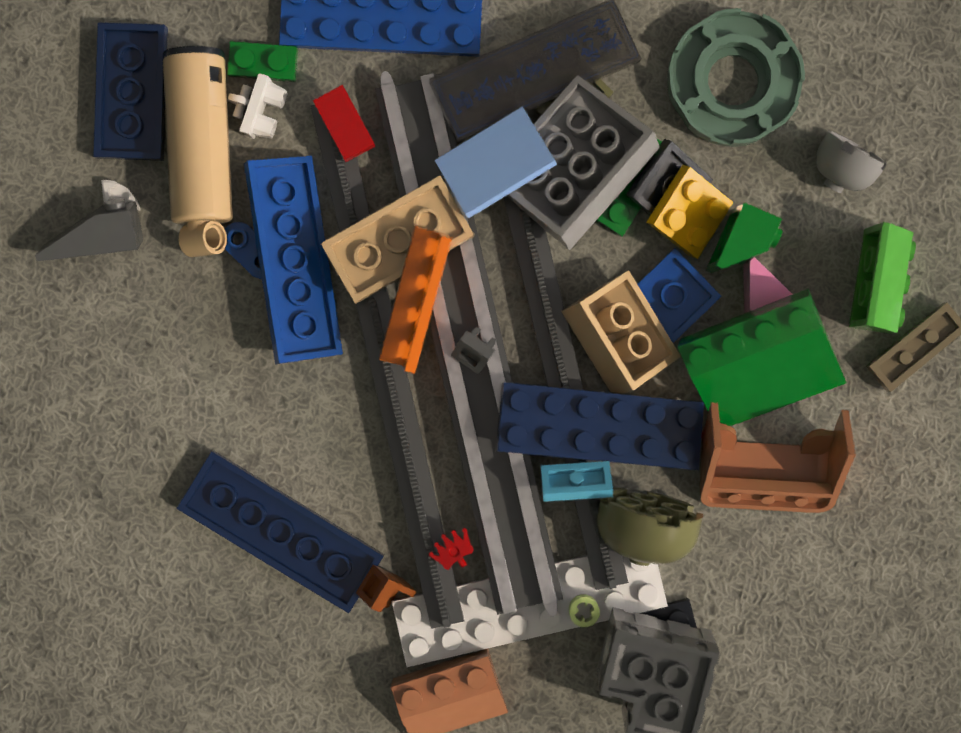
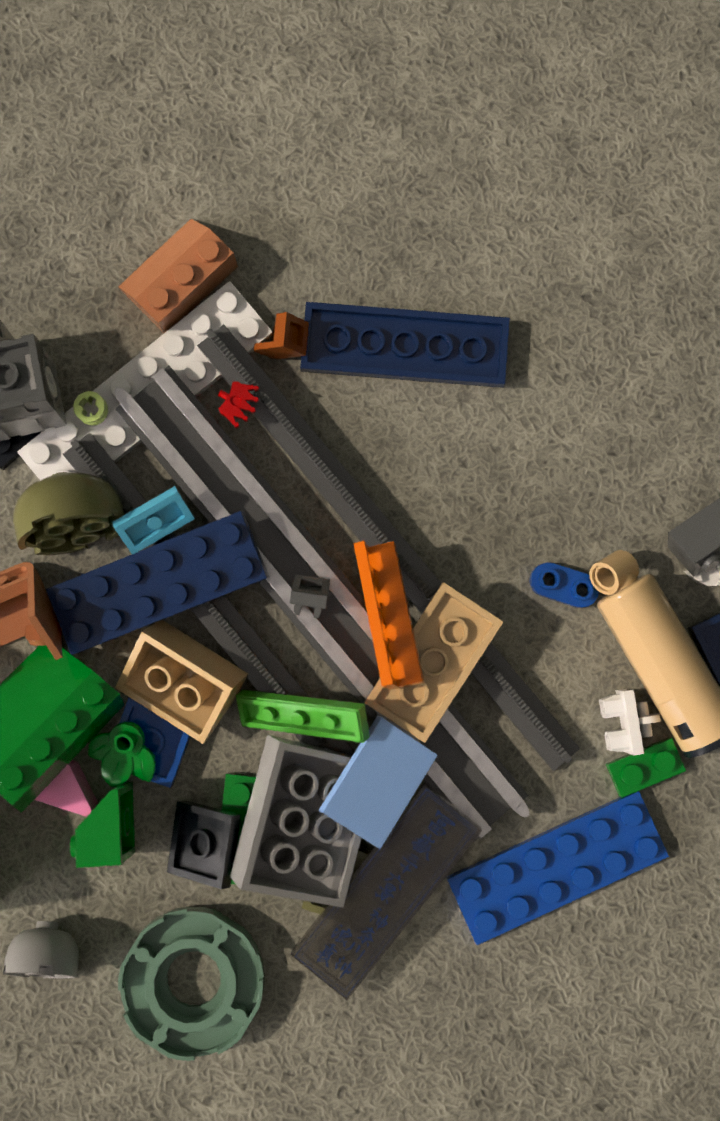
camera: 150 degrees right, 5 degrees down
(292, 259) = (523, 596): blue plate -> none
(344, 123) = (540, 746): red tile -> none
(531, 250) = (303, 715): none -> bright green tile
(689, 211) = (172, 829): yellow plate -> none
(704, 292) = (120, 758): none -> green plate

